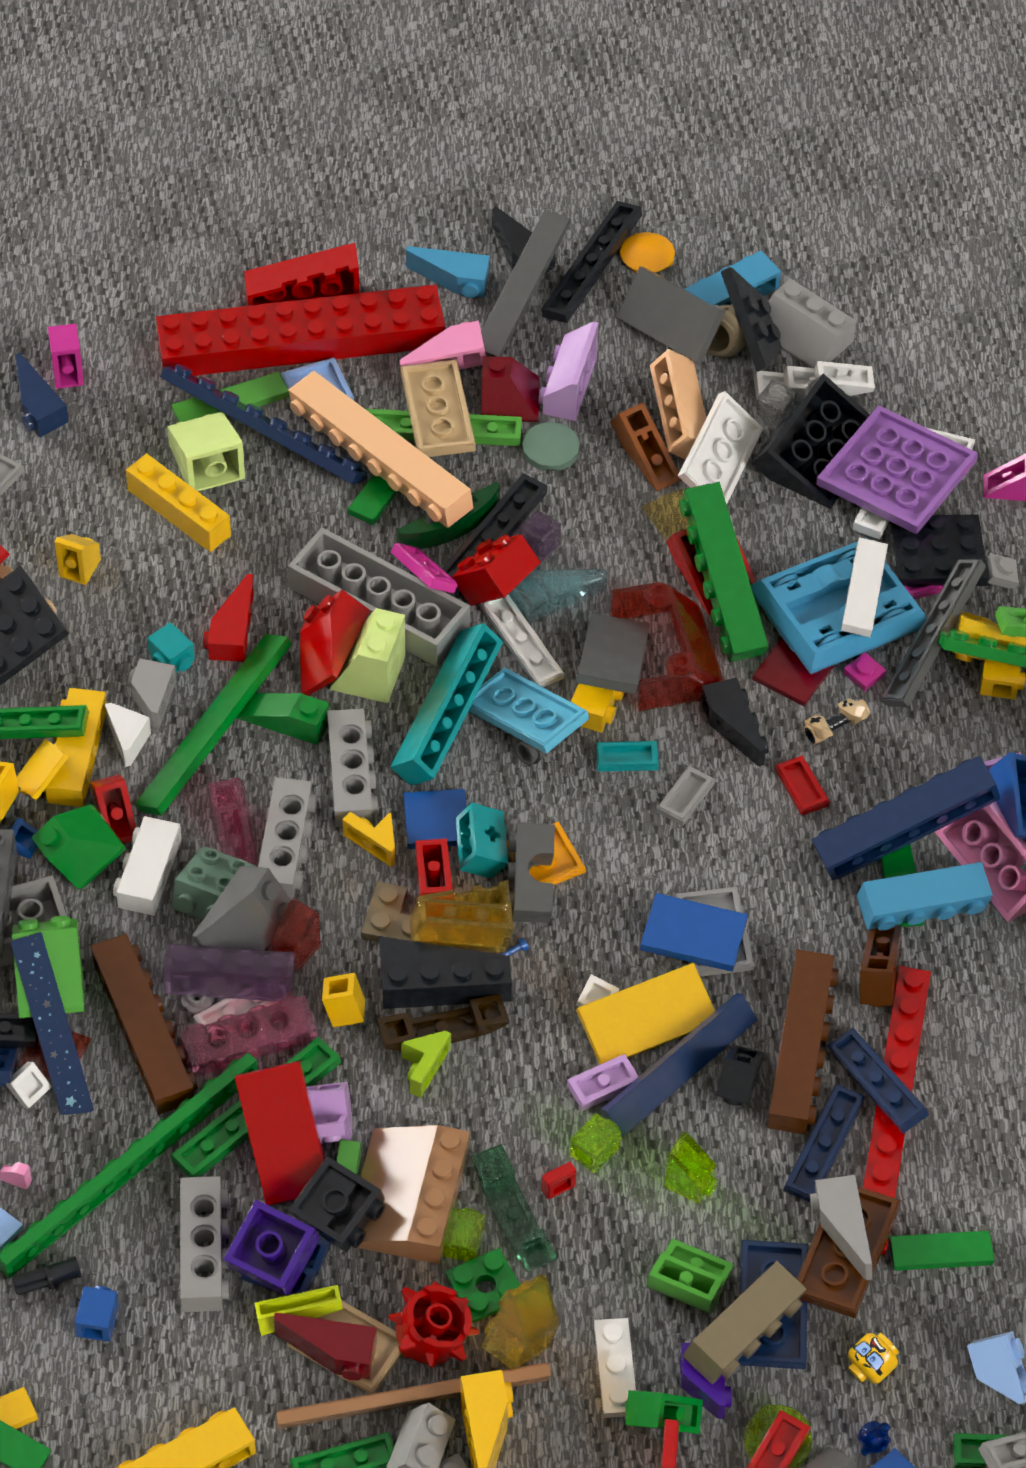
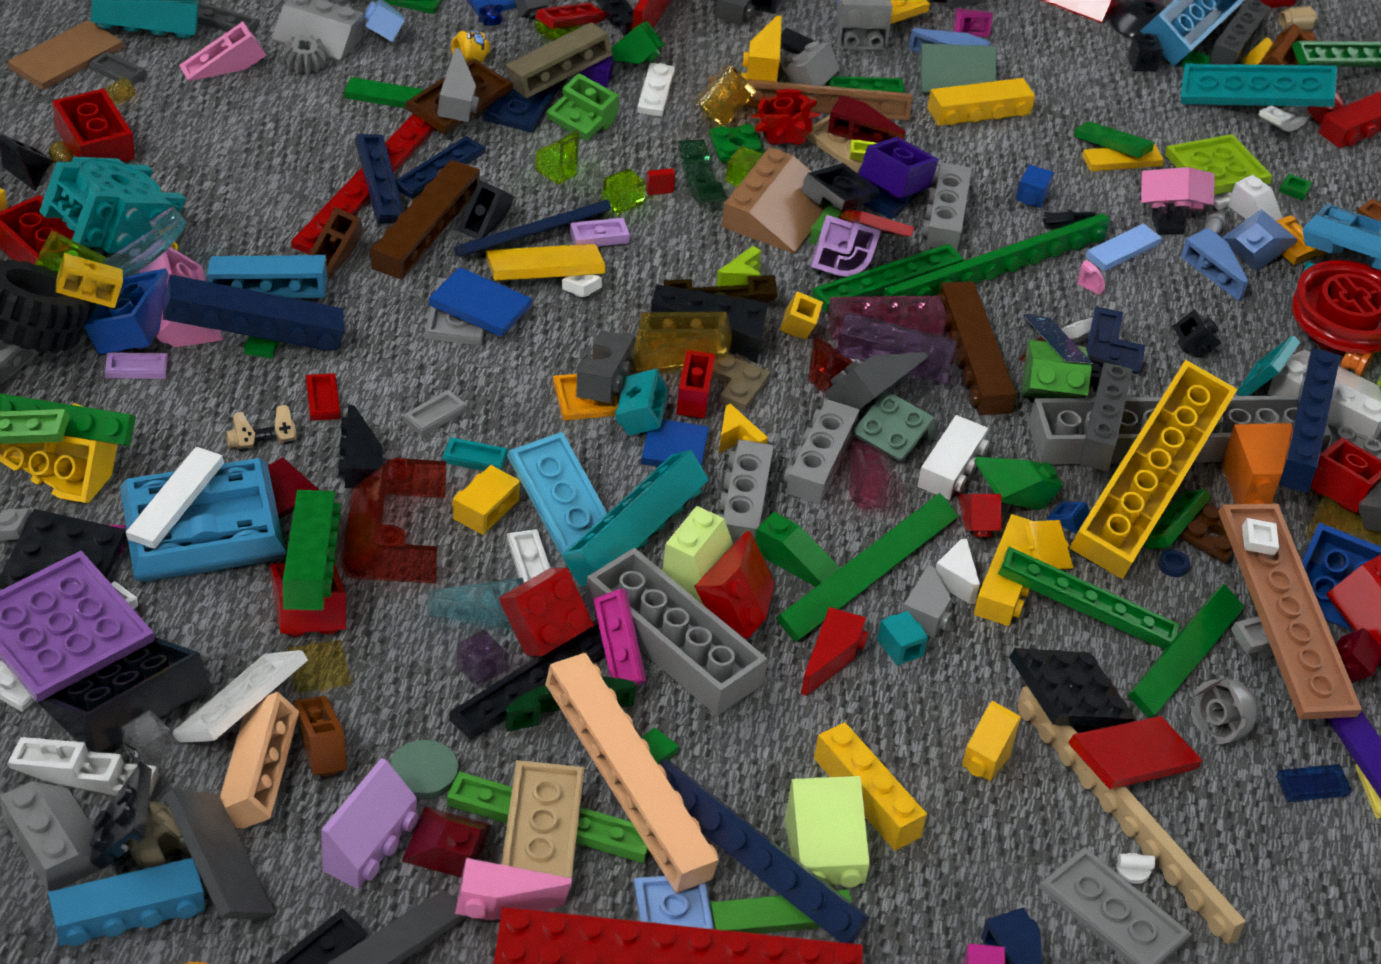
camera: 170 degrees left, 10 degrees down
(613, 653) = (459, 511): dark grey tile -> none
(925, 644) = (115, 469): dark grey tile -> none

